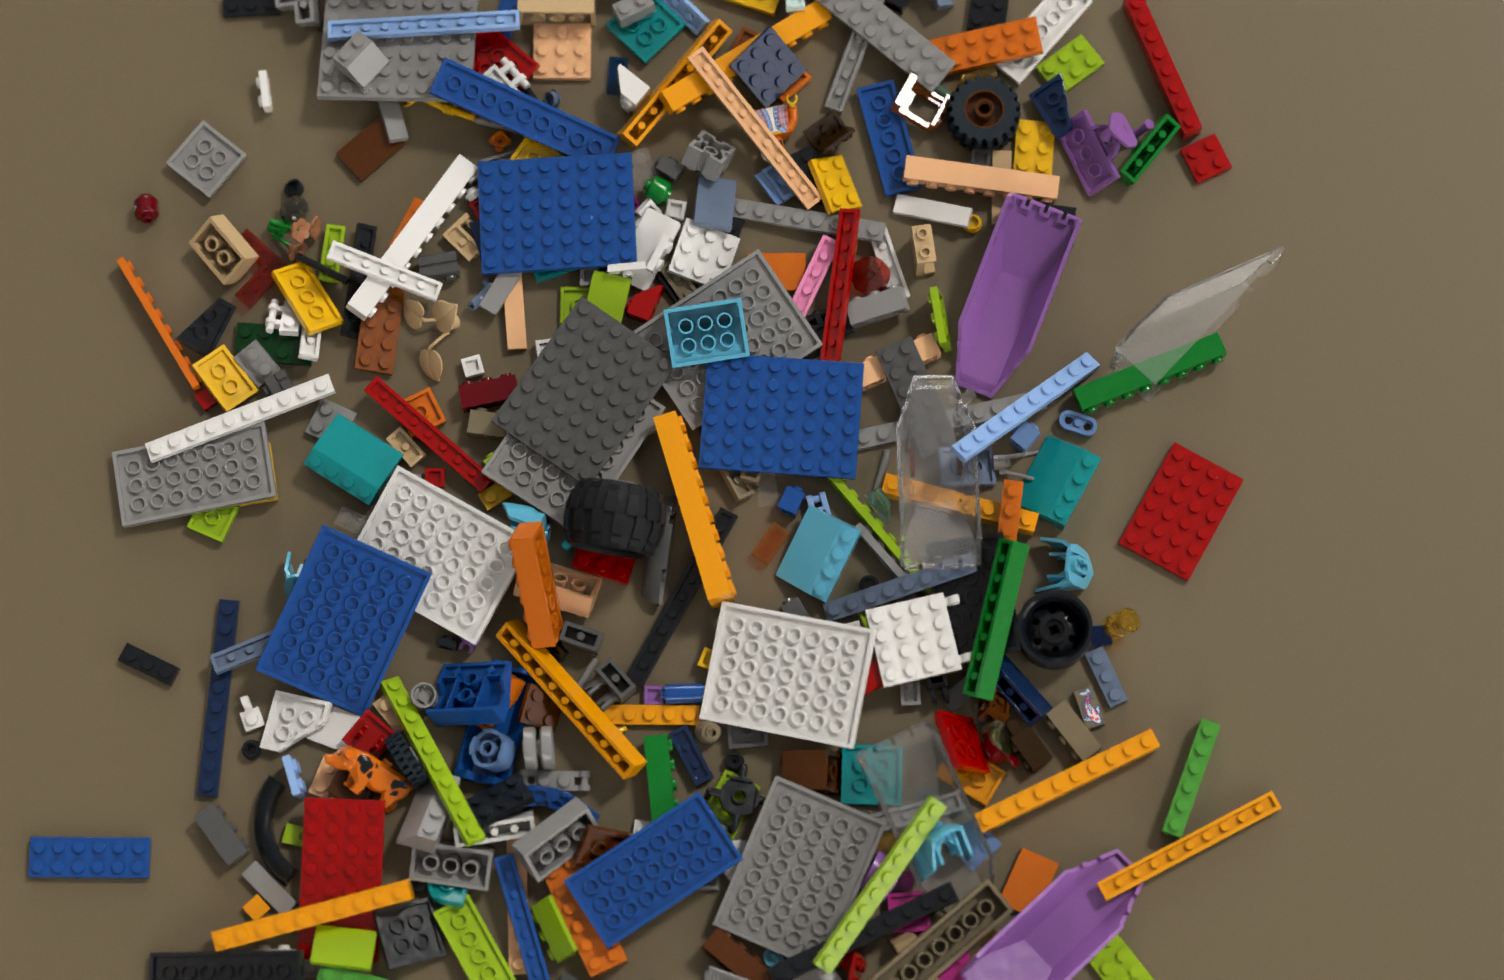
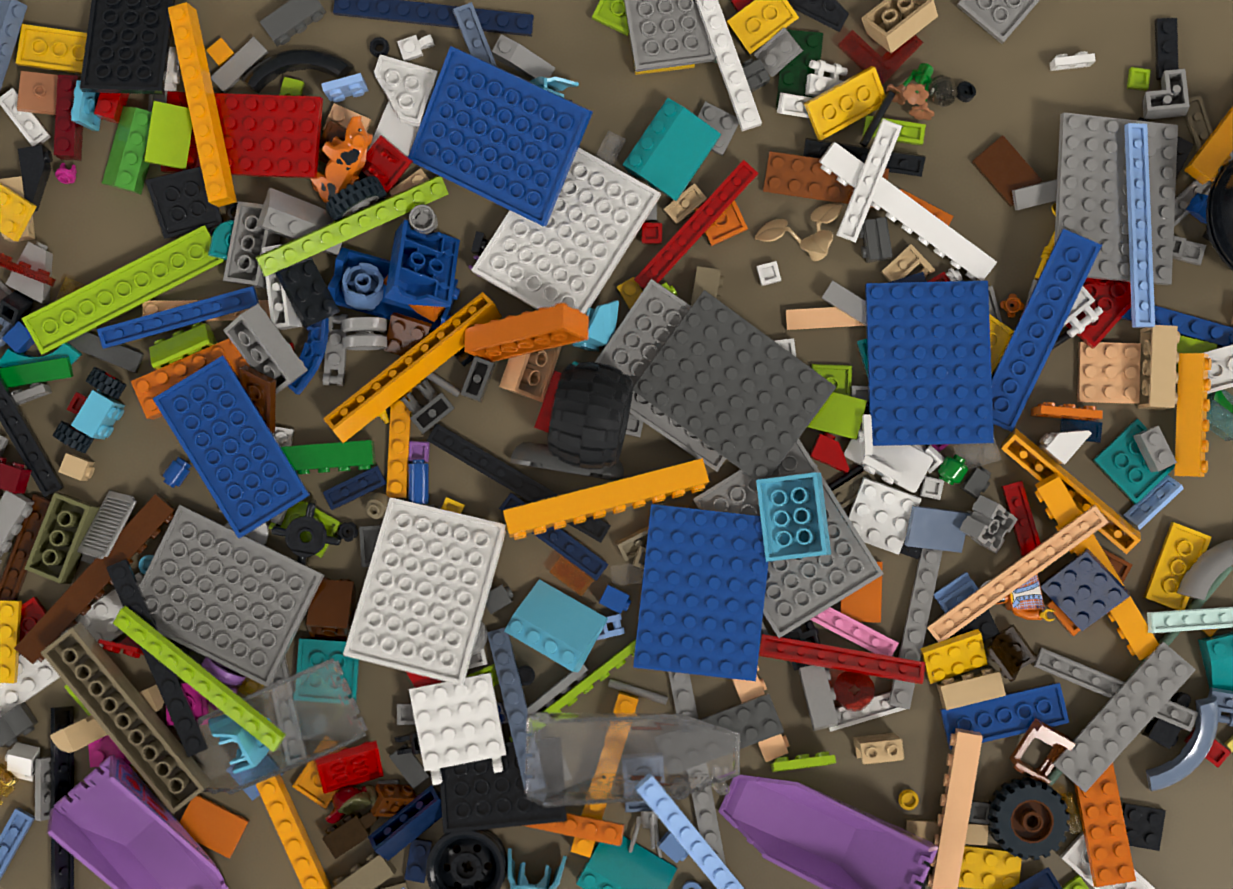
camera: 85 degrees right, 10 degrees up
(264, 608) = (521, 58): none -> light grey slope
(280, 31) = (1138, 78): none -> lime tile
(360, 60) = (1101, 157): light grey slope -> none
(474, 303) = (835, 276): sand blue arm -> none
(487, 392) = (740, 288): dark red brick -> none
(552, 98) = (1056, 361): sand blue plate -> none
(600, 88) = (1067, 411): none -> orange plate
(680, 932) = (176, 472): none -> blue brick
(711, 123) = (1018, 506): none -> red plate
(739, 552) = (565, 544): none -> dark blue plate
(865, 169) = (970, 689): none -> tan brick
(880, 504) = (607, 690): clear light blue tile -> none
(932, 210) = (922, 759): white tile -> none
(995, 619) = (472, 810): green brick -> none
(1052, 681) = (417, 860): none -> dark blue plate

